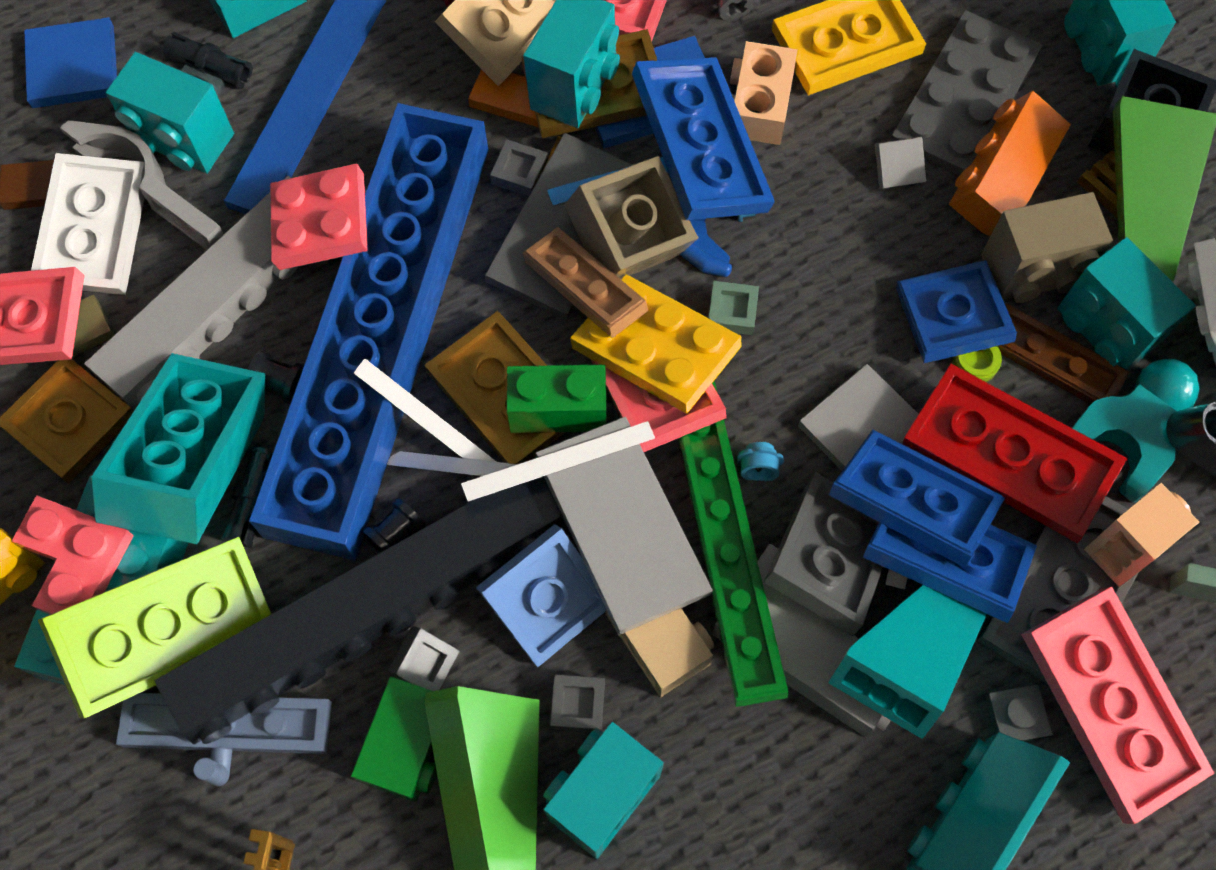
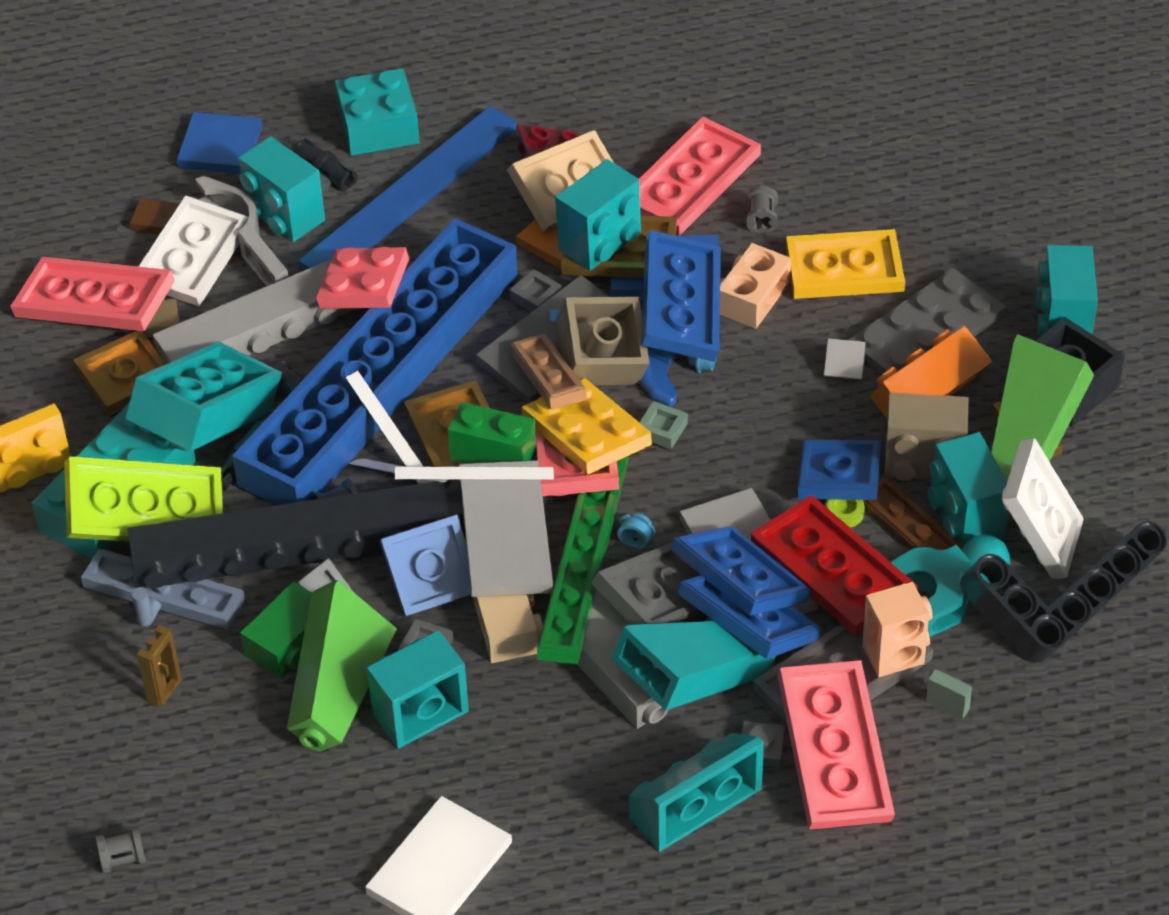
camera: 20 degrees right, 20 degrees down
(82, 551) = (101, 433): coral plate -> none

